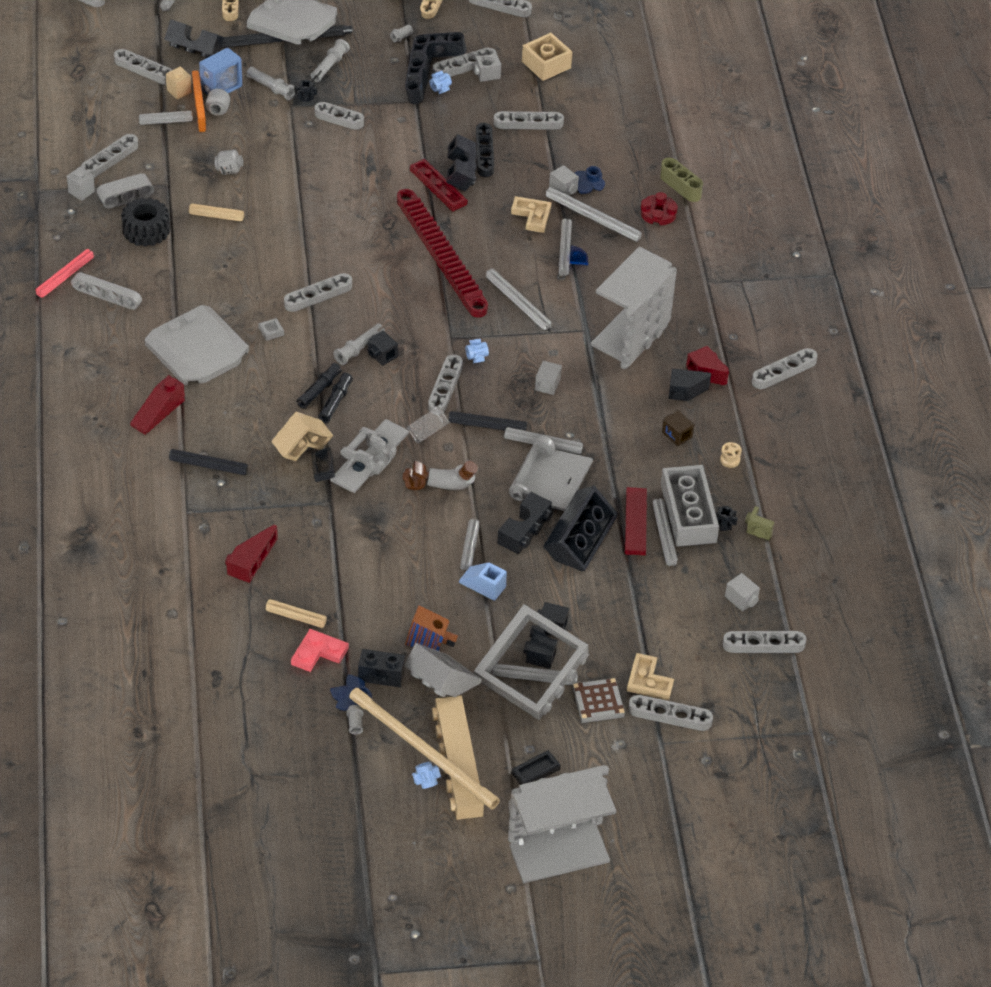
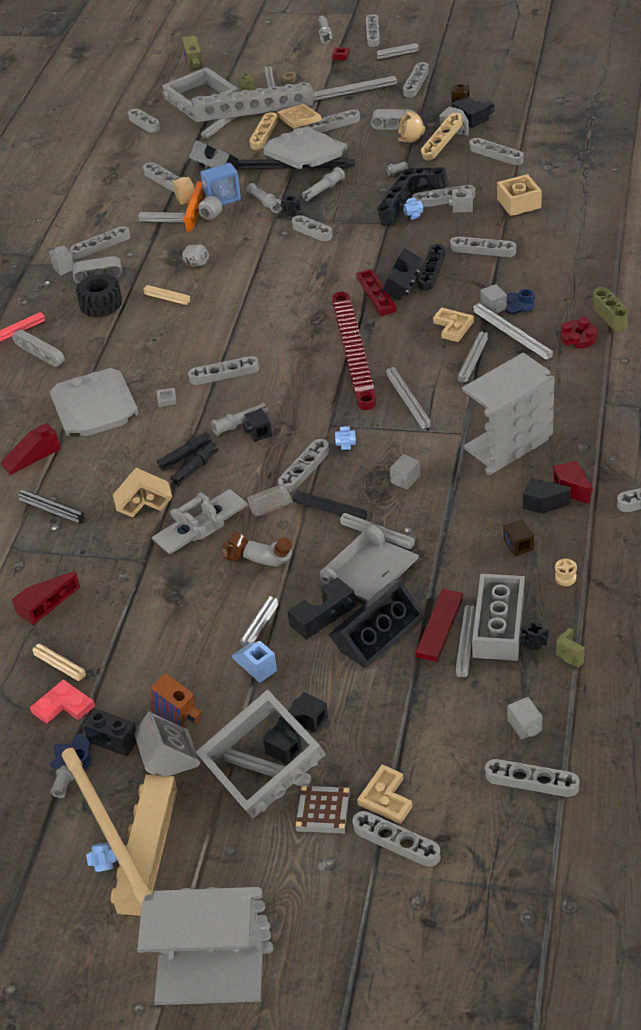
camera: 25 degrees right, 5 degrees down
(323, 464) = (151, 523): black tile -> none
(536, 768) = (225, 873): black tile -> none
(578, 256) = (481, 365): clear blue tile -> none

